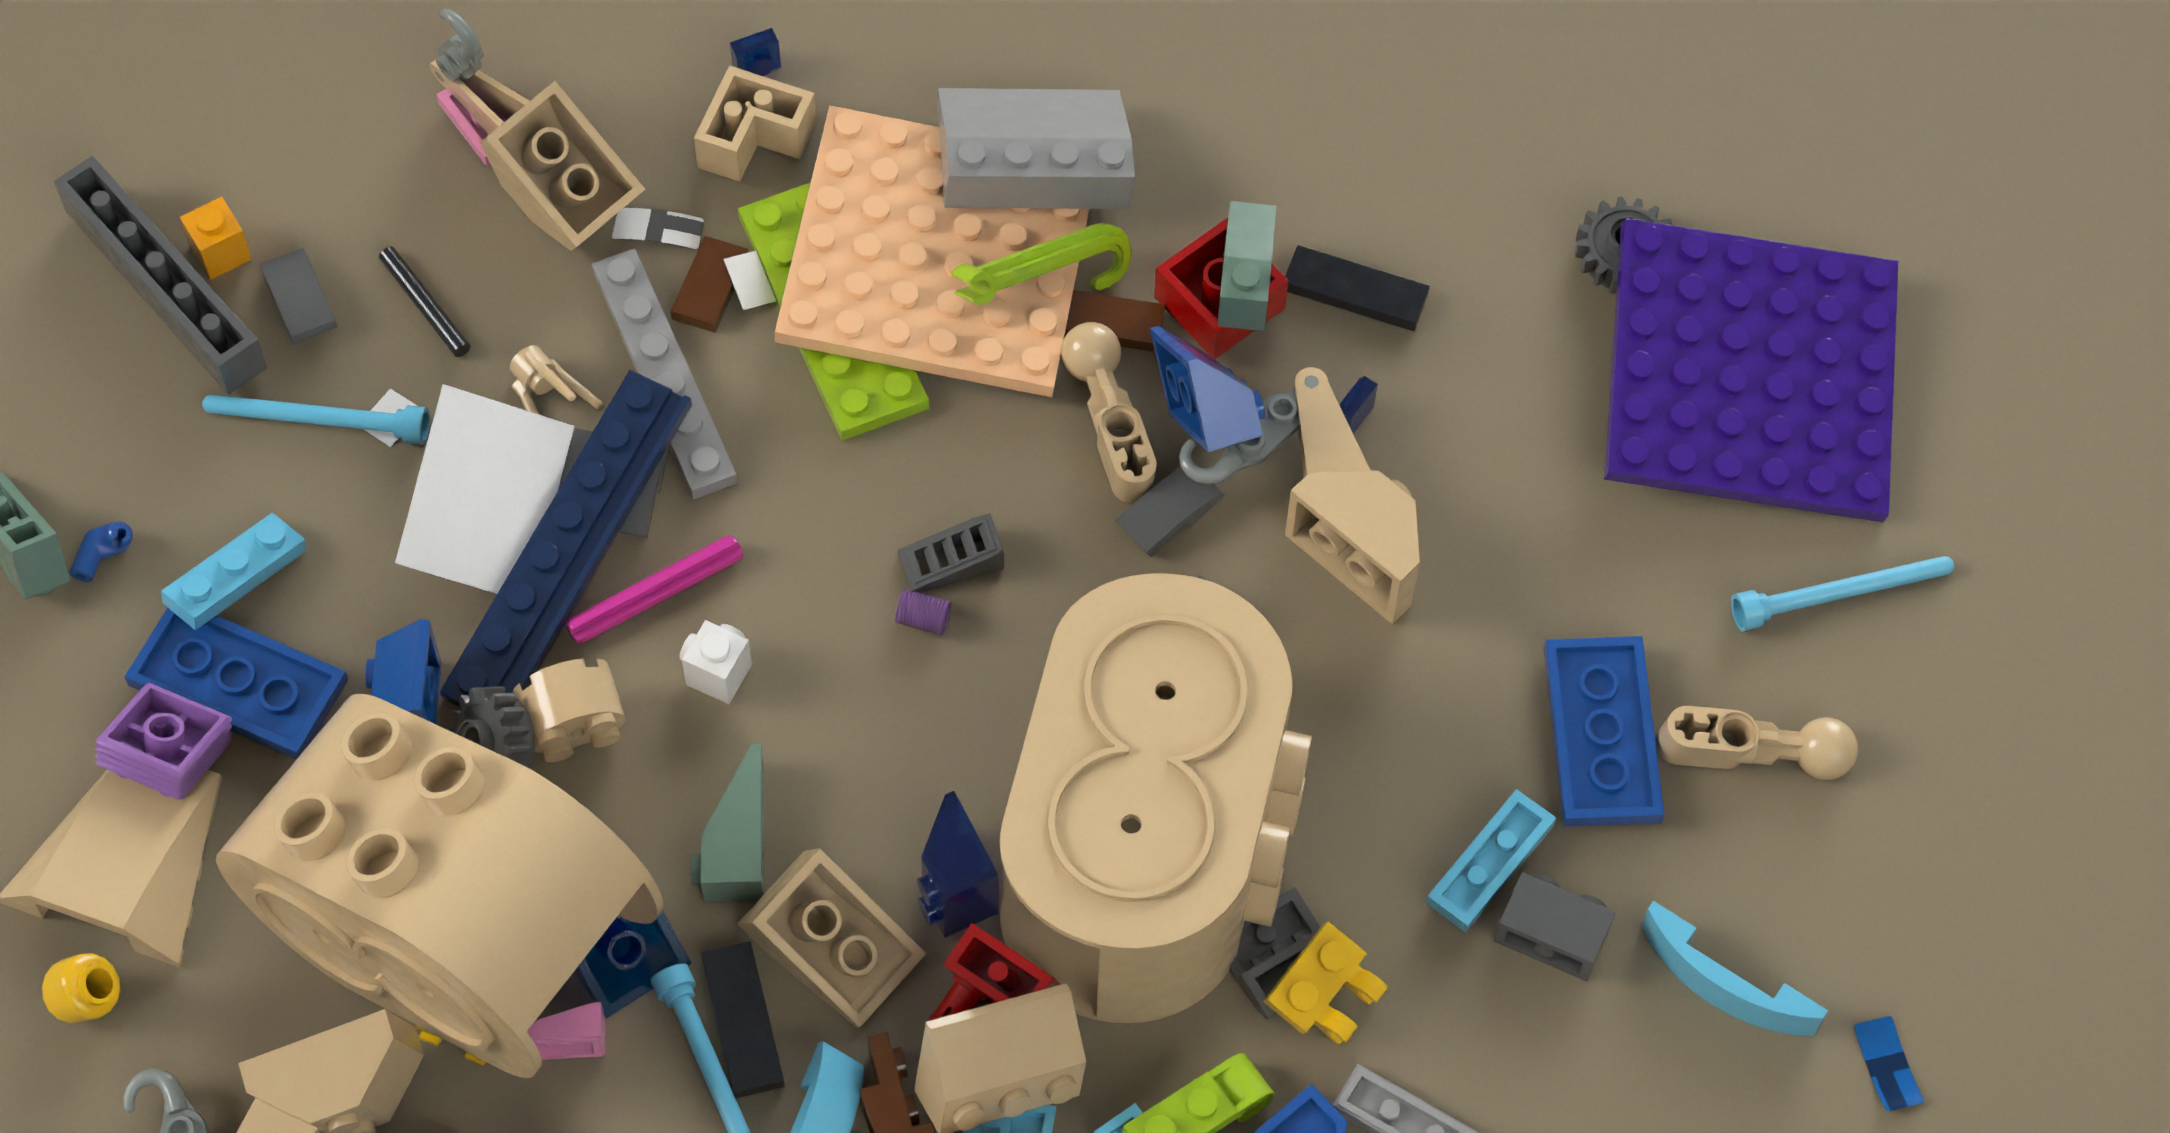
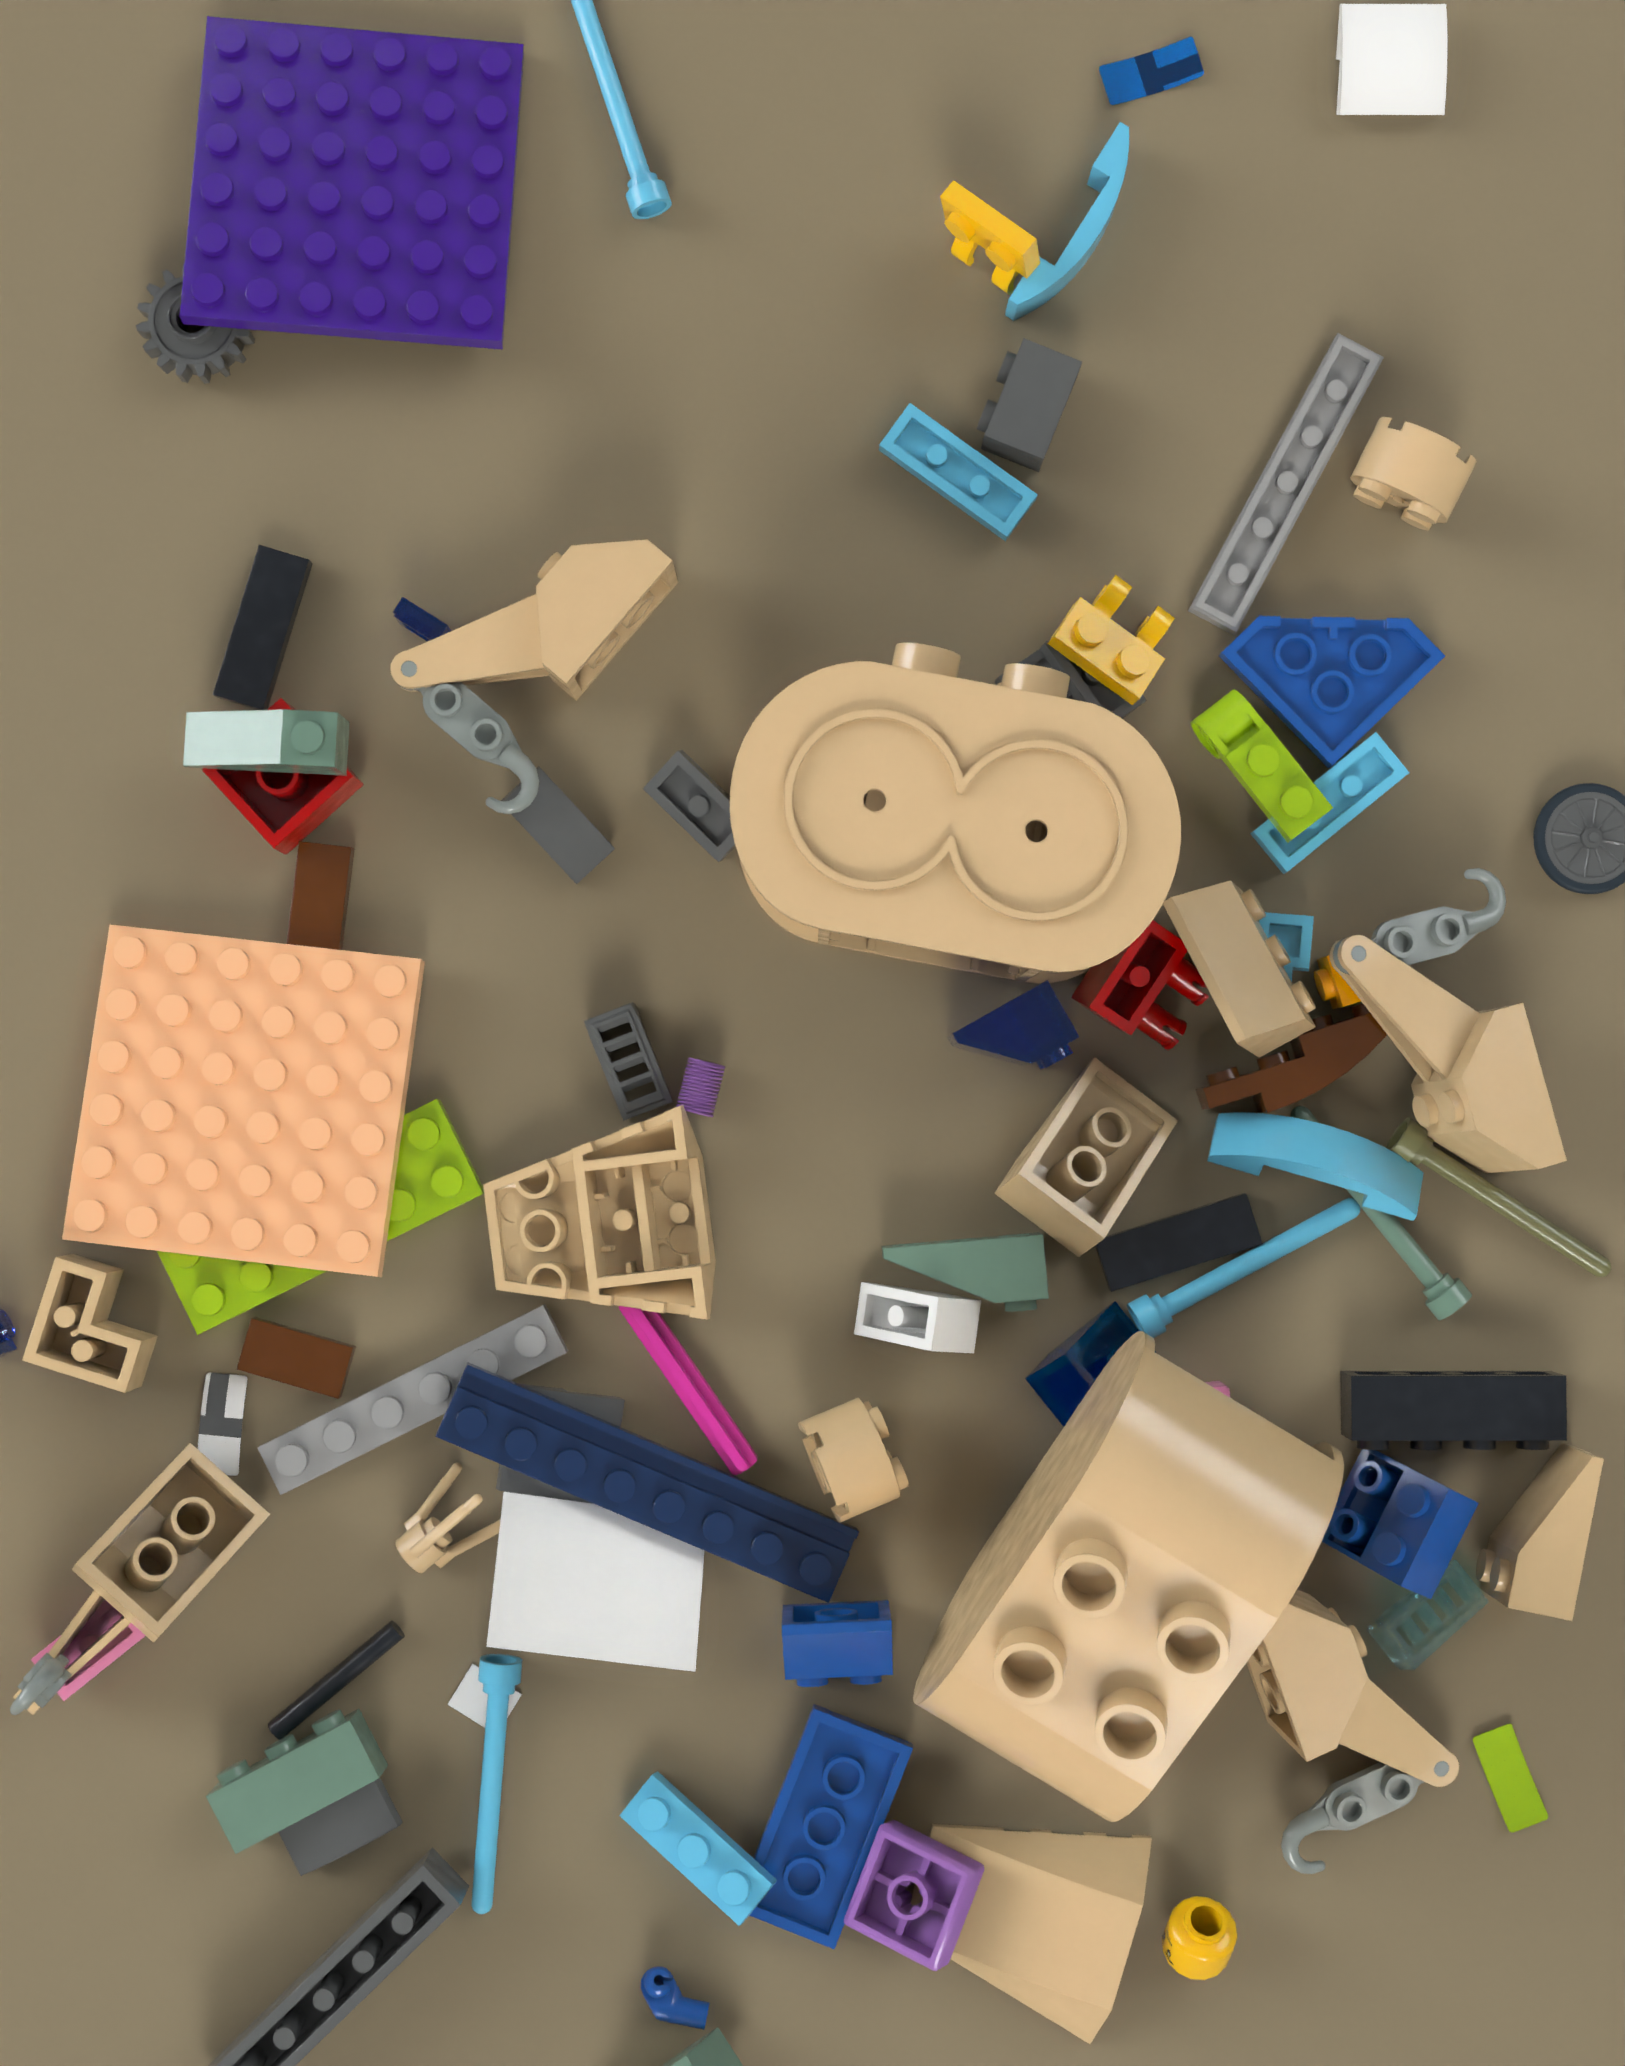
camera: 90 degrees left, 25 degrees up
(215, 238) = (273, 1932): light orange brick -> none
(345, 262) = (296, 1778): none -> sand green brick
(496, 723) = (896, 1538): dark grey gear -> none
(692, 782) = (917, 1318): none -> white slope
(716, 660) = (776, 1307): white brick -> none
(749, 280) = (290, 1312): white sticker -> none
(806, 533) = (610, 1222): none -> tan wedge
(1035, 148) = (107, 996): light grey slope -> none
(1045, 258) = (305, 1045): lime piece -> none
(1092, 355) = (375, 919): tan beam -> none
(1205, 395) = (438, 782): slope -> none
(1603, 731) = (800, 354): blue plate -> none
(1695, 738) = (806, 126): tan beam -> none
(1715, 884) = (979, 224): none -> yellow plate

